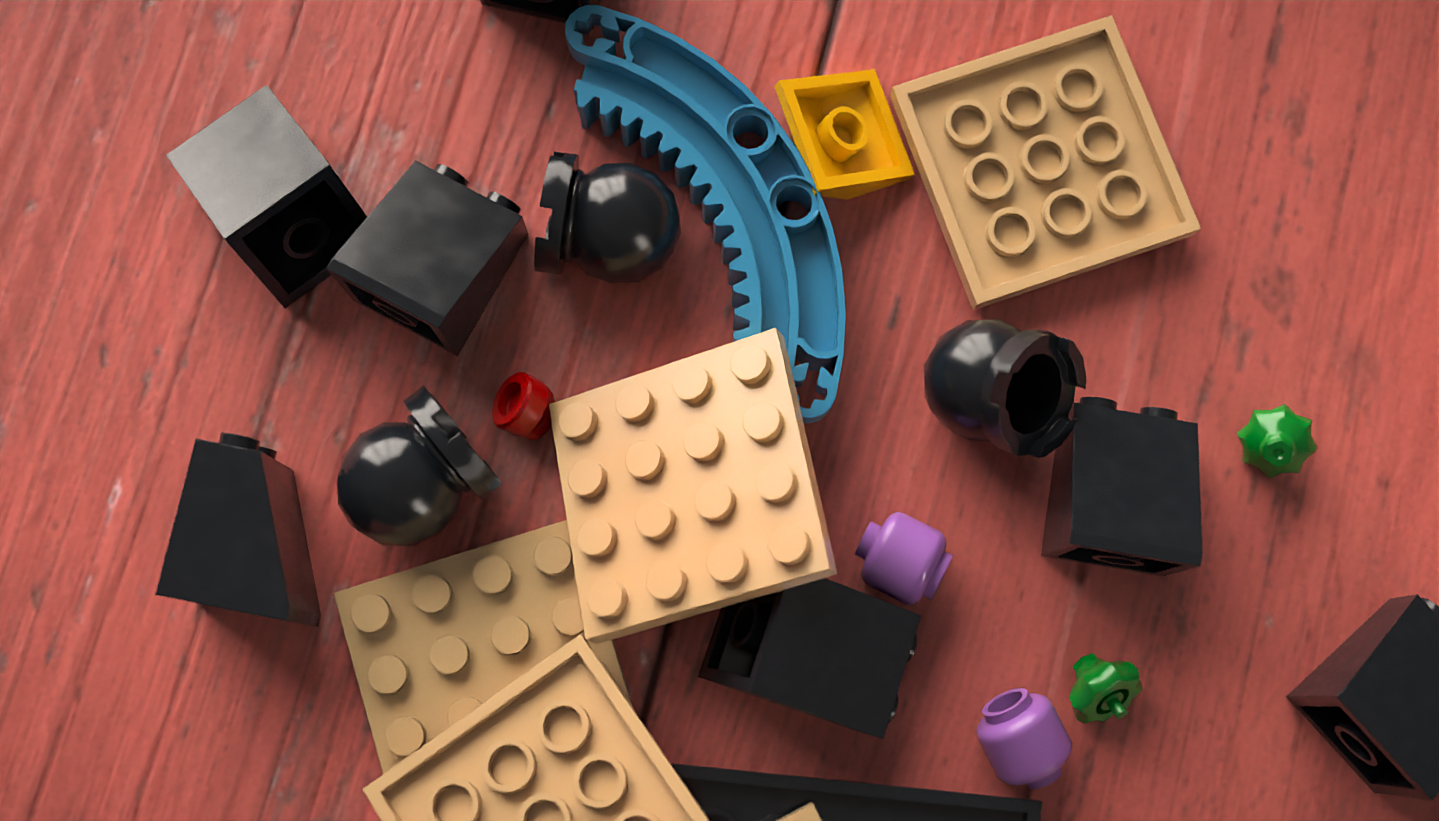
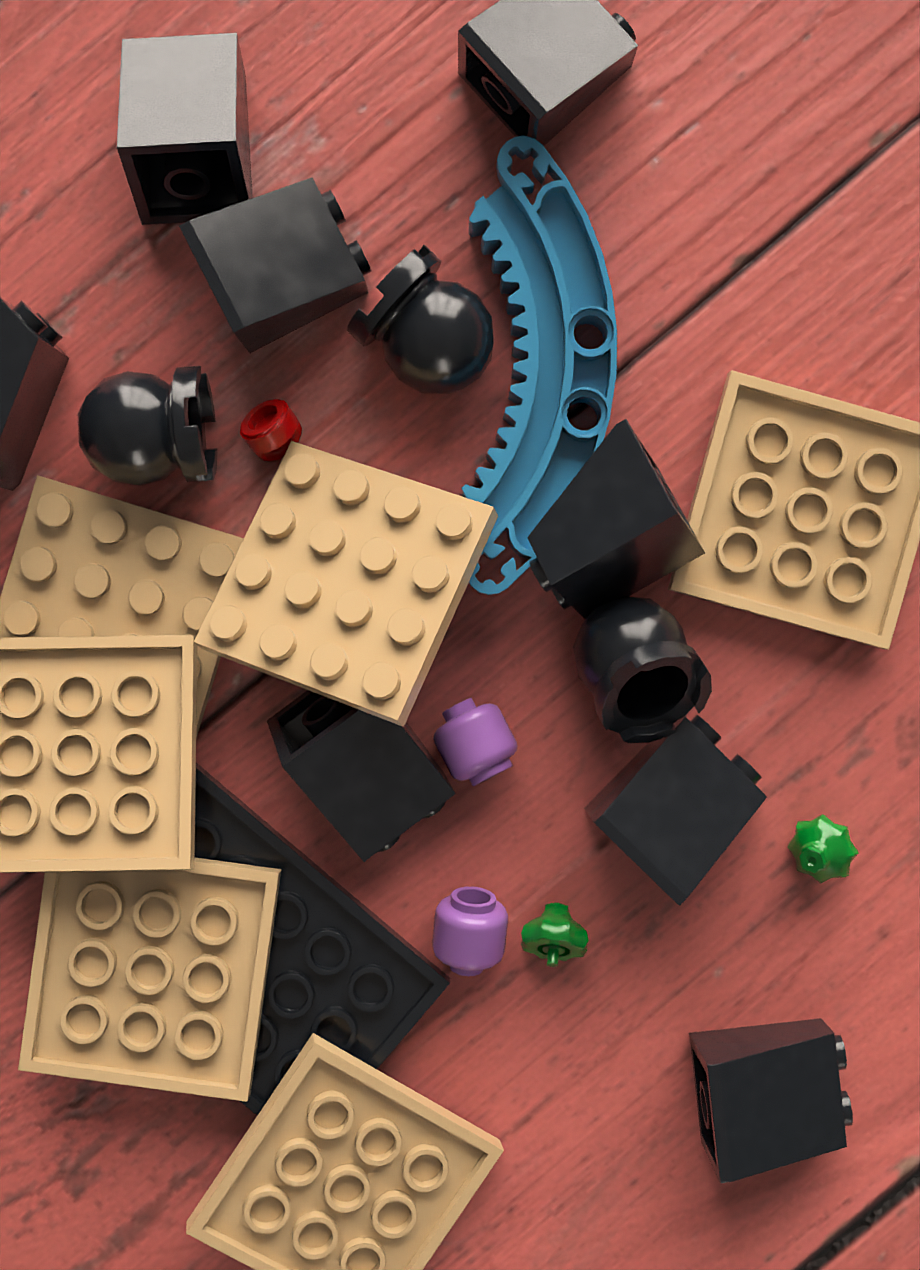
camera: 45 degrees right, 10 degrees up
(845, 132) = (668, 380): yellow slope -> none
(893, 278) = (611, 528): none -> black slope

